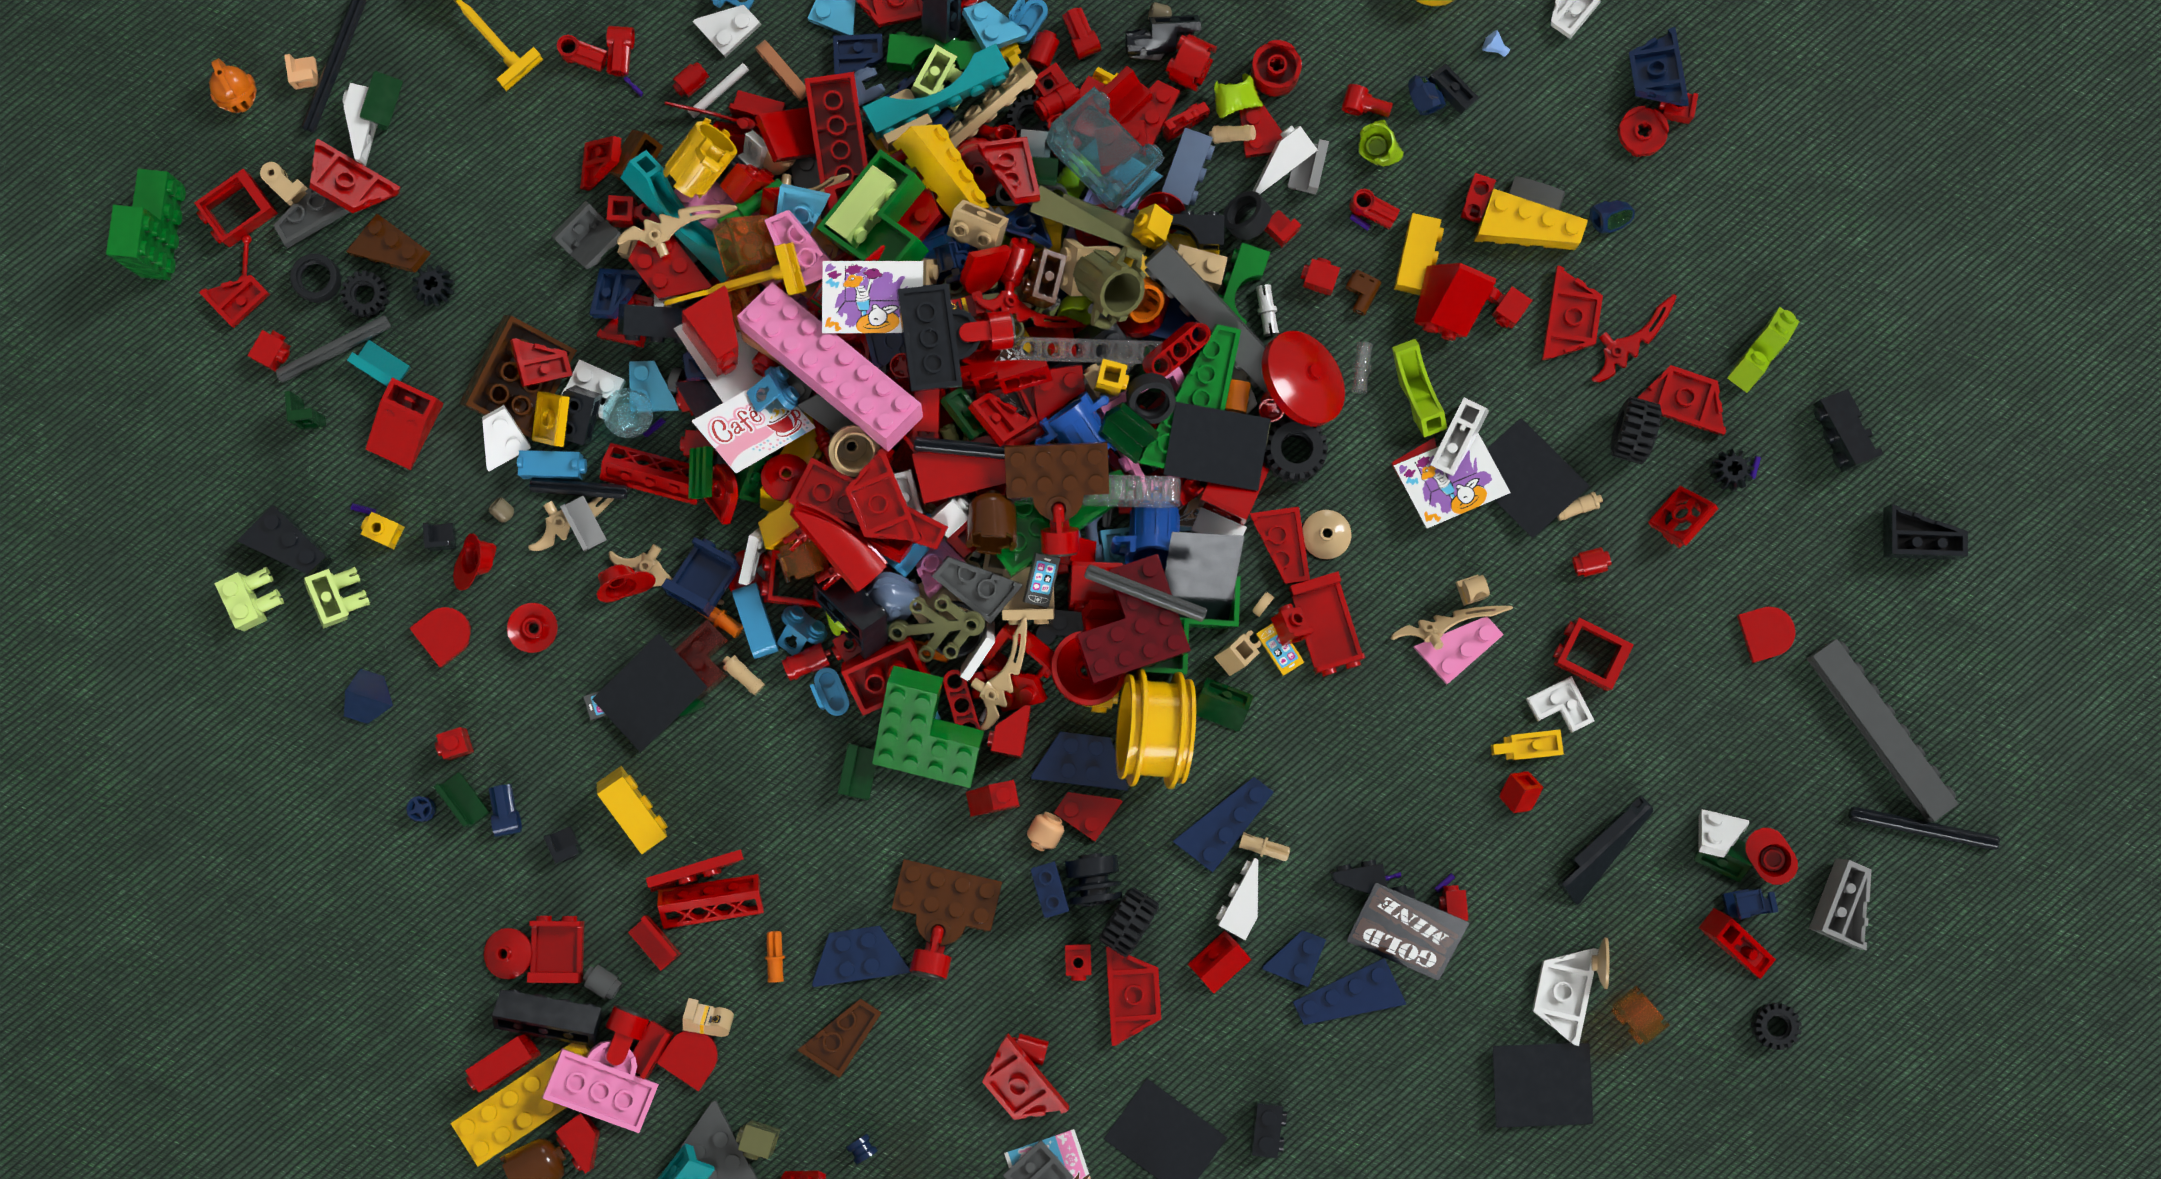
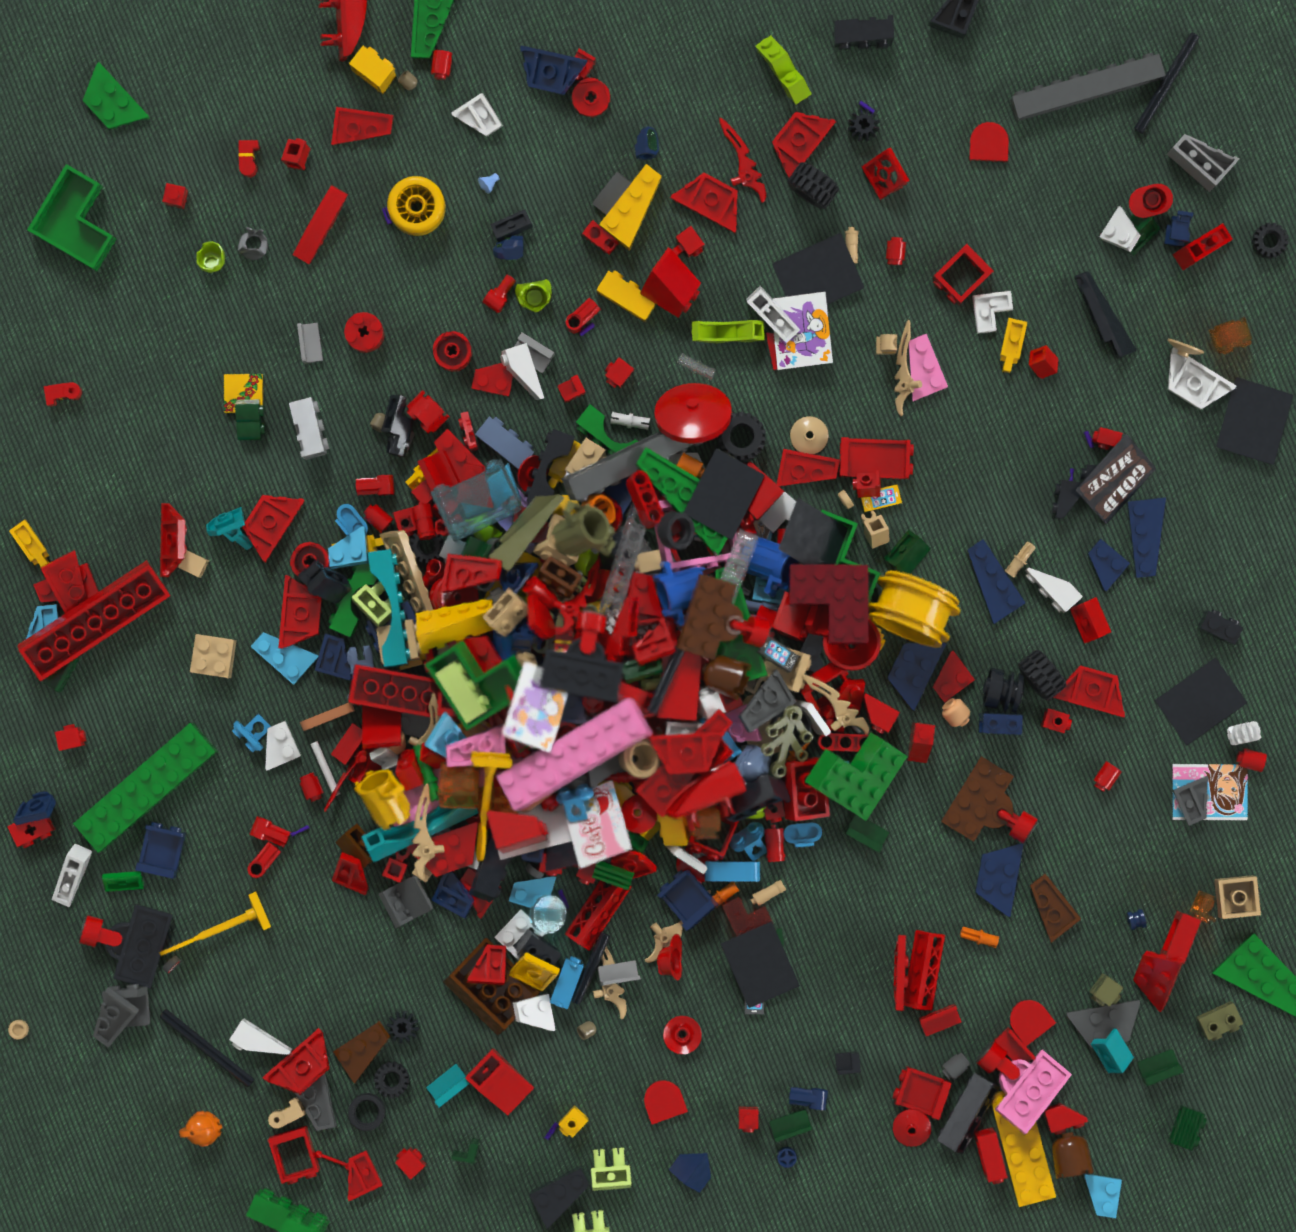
camera: 70 degrees left, 5 degrees up
(301, 72) = (205, 1073): light nougat panel -> none
(333, 349) = (424, 1115): dark grey axle -> none
(381, 100) = (250, 1020): dark green panel -> none
(439, 536) = (591, 1081): black panel -> none
(473, 560) = (618, 1063): red piece -> none
(631, 809) = (839, 1005): yellow wedge -> none
(707, 1019) = (1008, 999): tan leg -> none
(1020, 1084) = (1130, 791): red wing -> none
(1111, 378) = (652, 554): yellow brick -> none
(1127, 431) = (694, 556): dark green panel -> none
(1145, 593) = (817, 583): dark grey axle -> none
(1152, 225) = (546, 485): yellow brick -> none
(1232, 133) = (490, 400): tan piece -> none
(1236, 96) = (463, 387): lime hair -> none
(1255, 224) = (564, 404): black tyre -> none
(1269, 409) = (707, 447): red wheel -> none
(1365, 287) = (639, 342): reddish brown piece -> none

